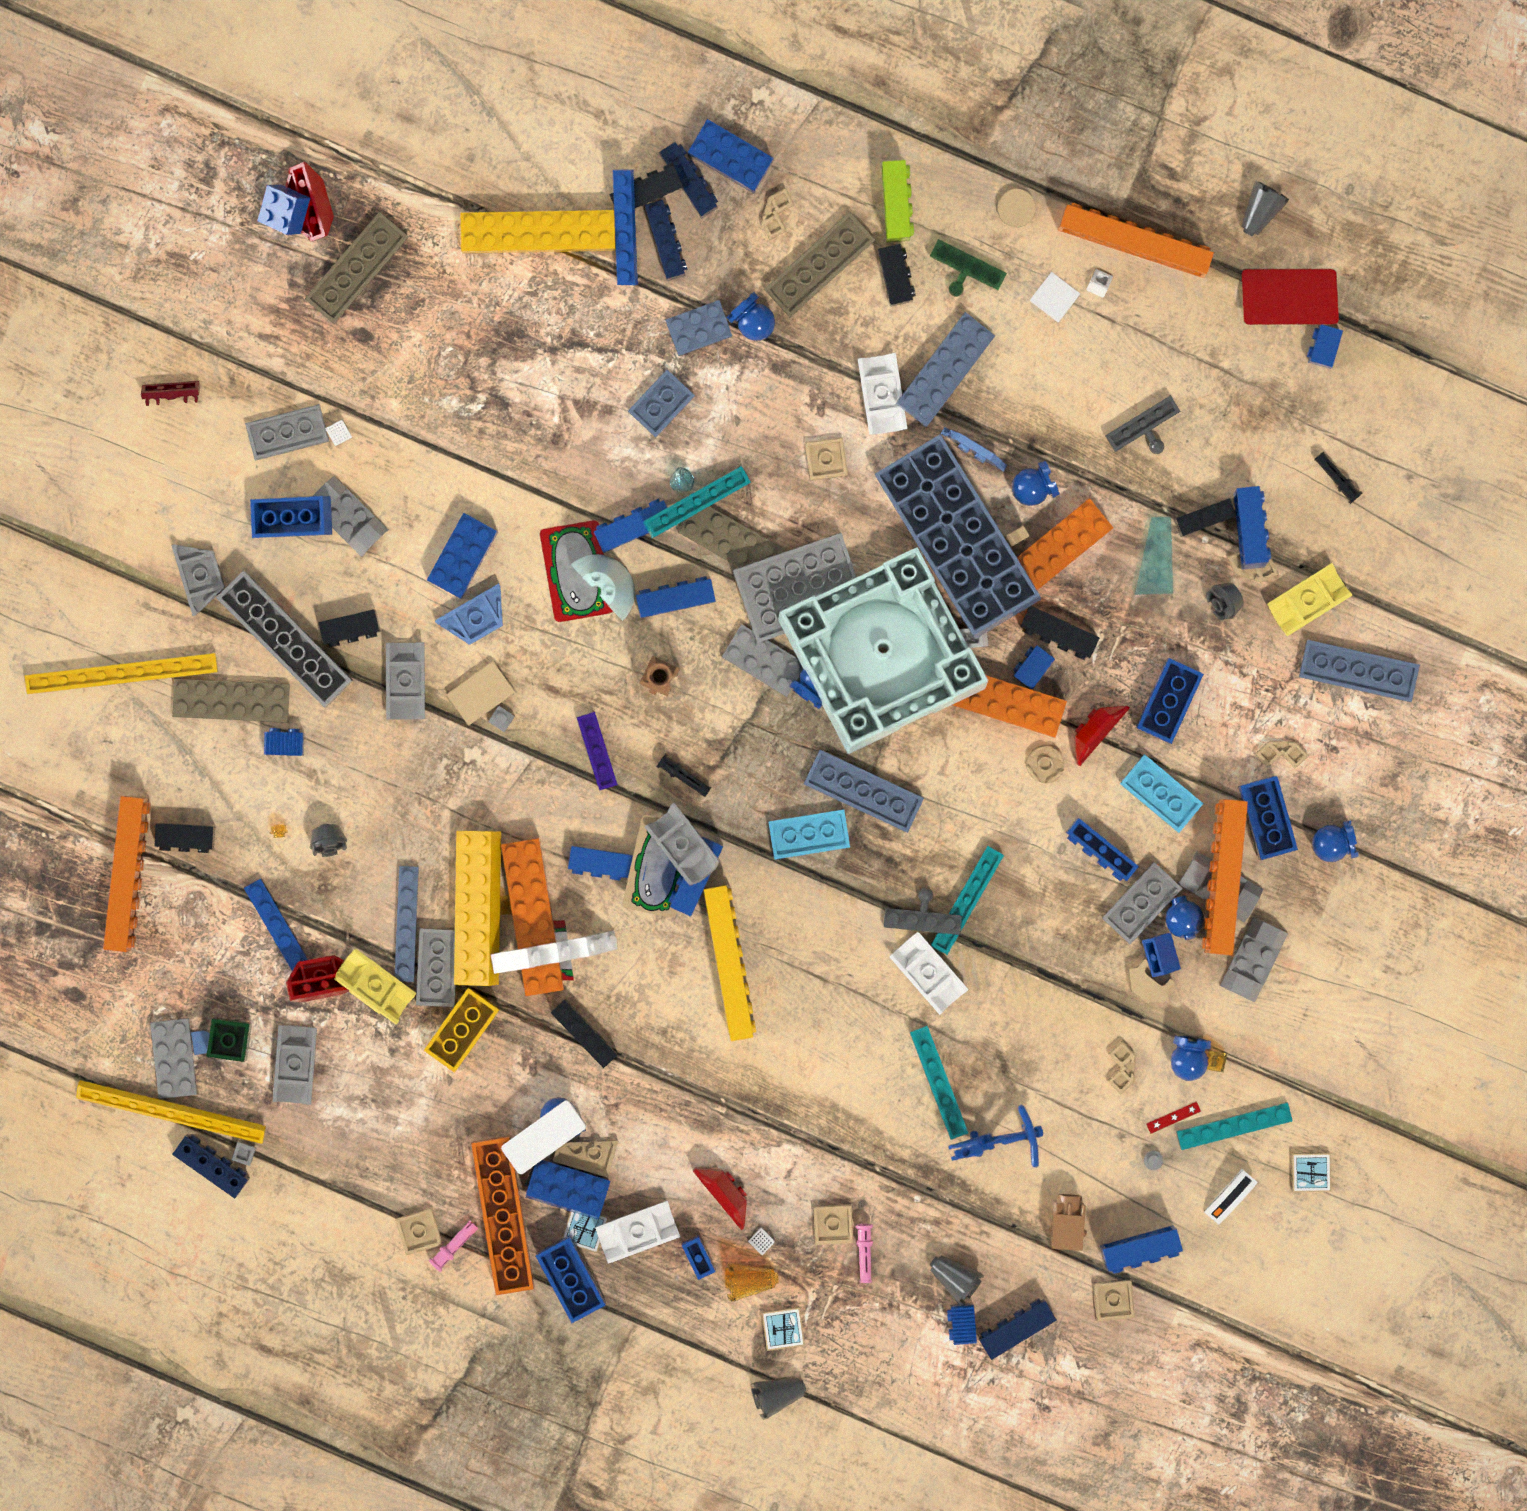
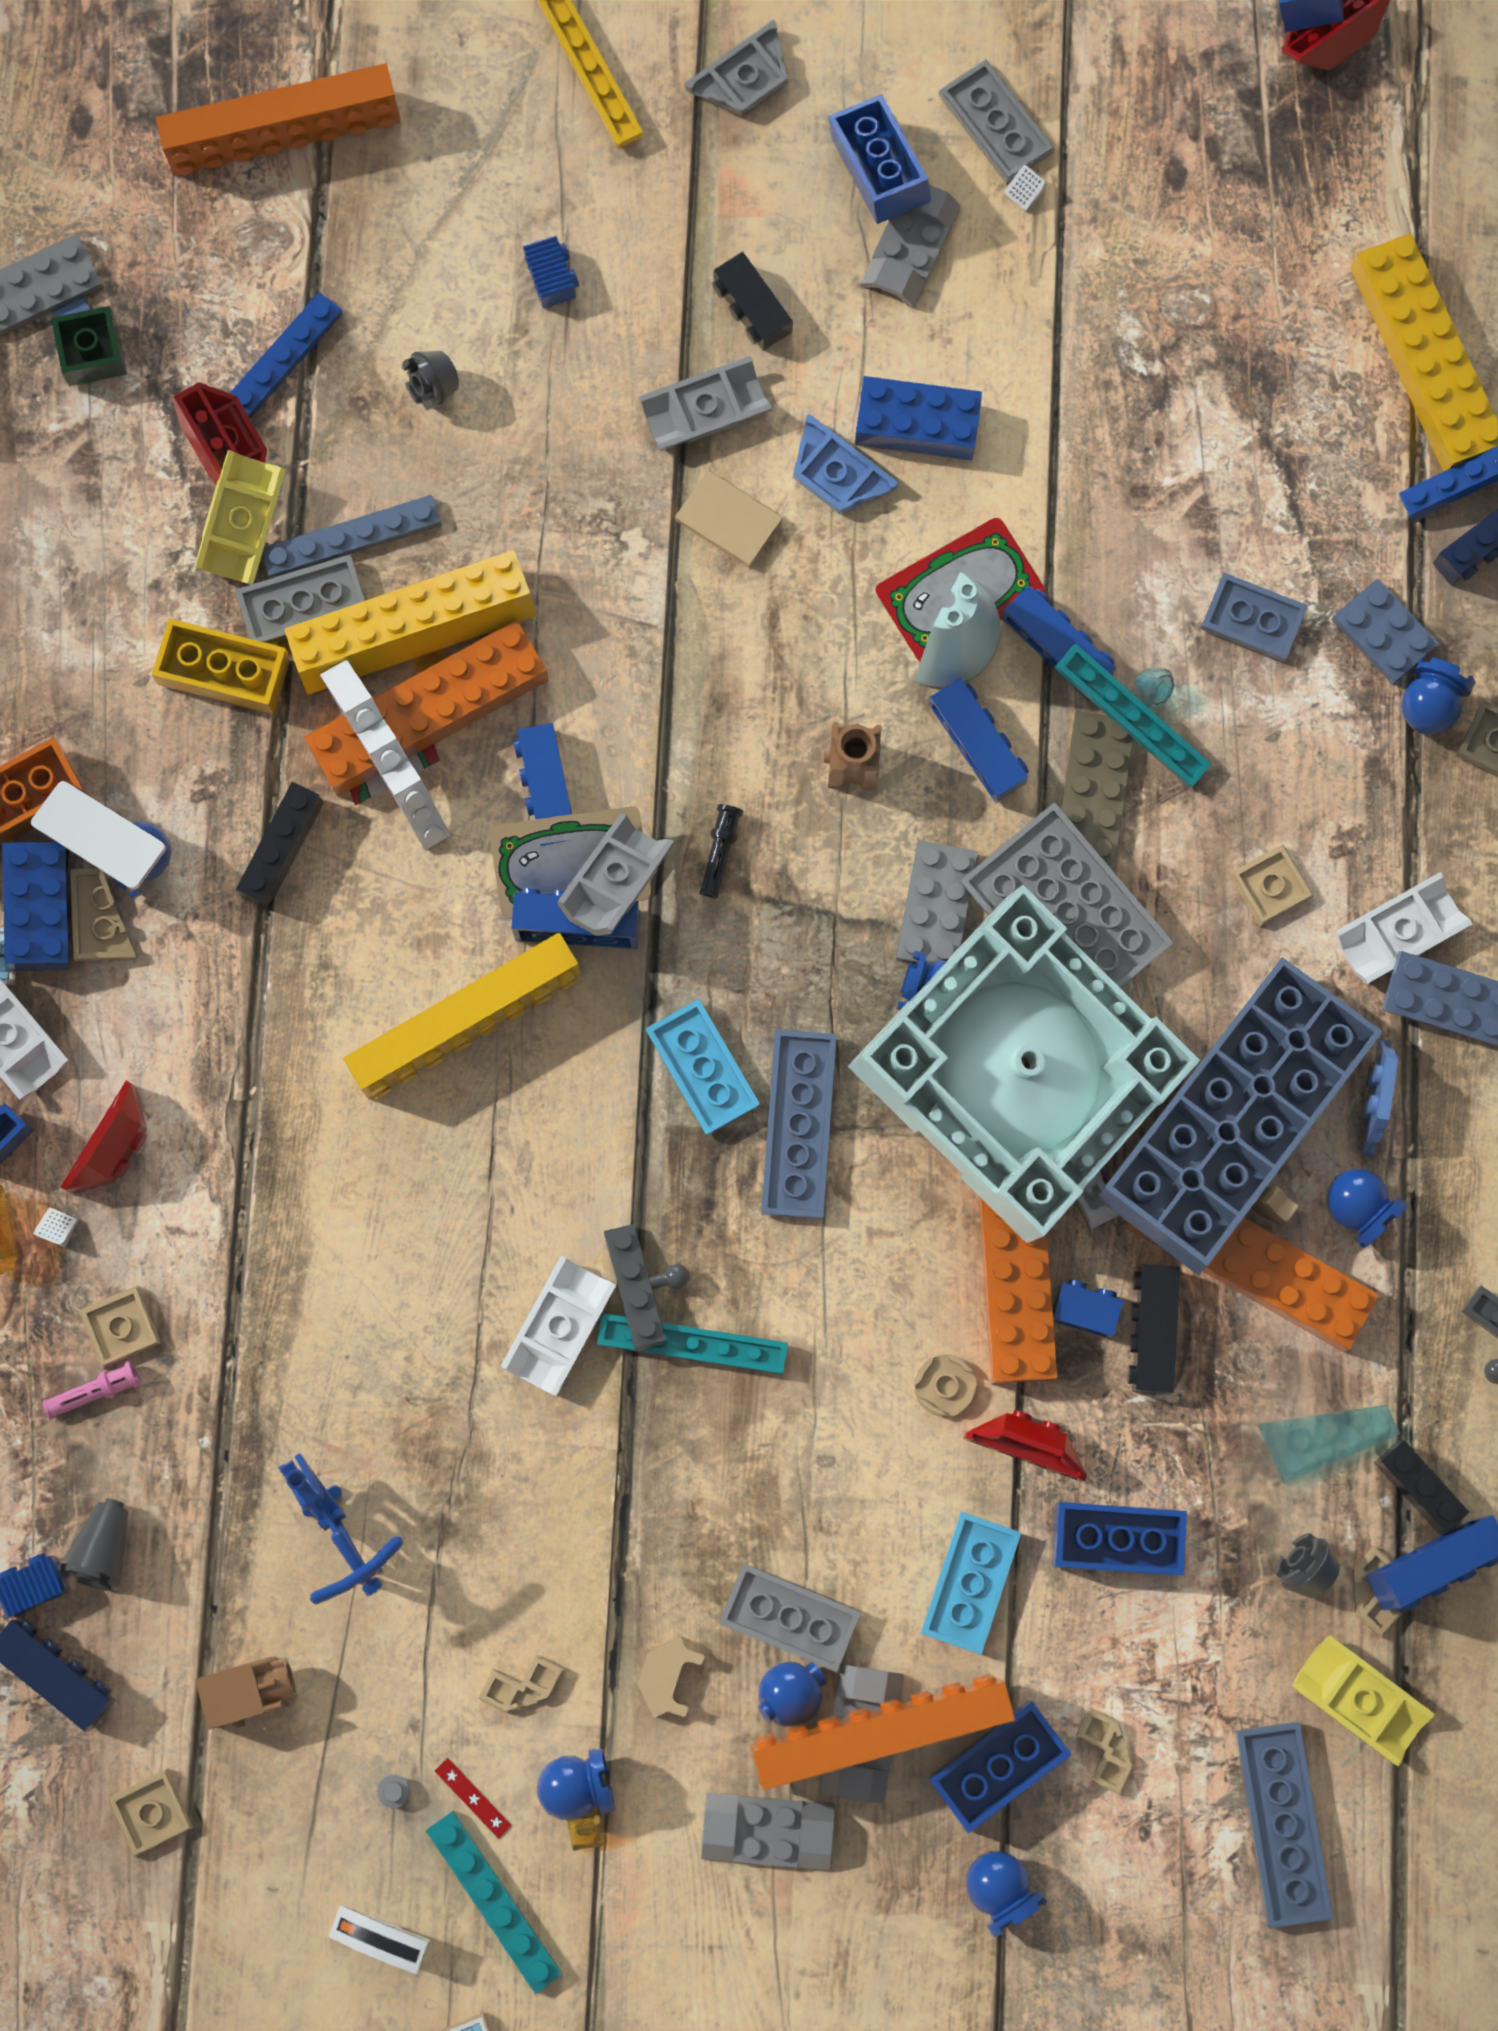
camera: 70 degrees right, 10 degrees down
(184, 837) = (362, 185): black brick -> none
(231, 700) = (583, 181): dark tan plate -> none
(278, 831) = (420, 310): clear yellow plate -> none
(284, 639) = (700, 216): light grey brick -> none
(294, 1064) = (86, 451): light grey piece -> none
(356, 268) = (1268, 129): dark tan plate -> none
(501, 719) = (702, 561): light grey plate -> none
(597, 751) = (708, 712): dark purple plate -> none
(939, 1082) = (395, 1406): teal plate -> none
(1103, 850) = (849, 1522): blue brick -> none
(1141, 1248) = (244, 1825): blue brick -> none
(1161, 954) = (720, 1678): blue brick -> none

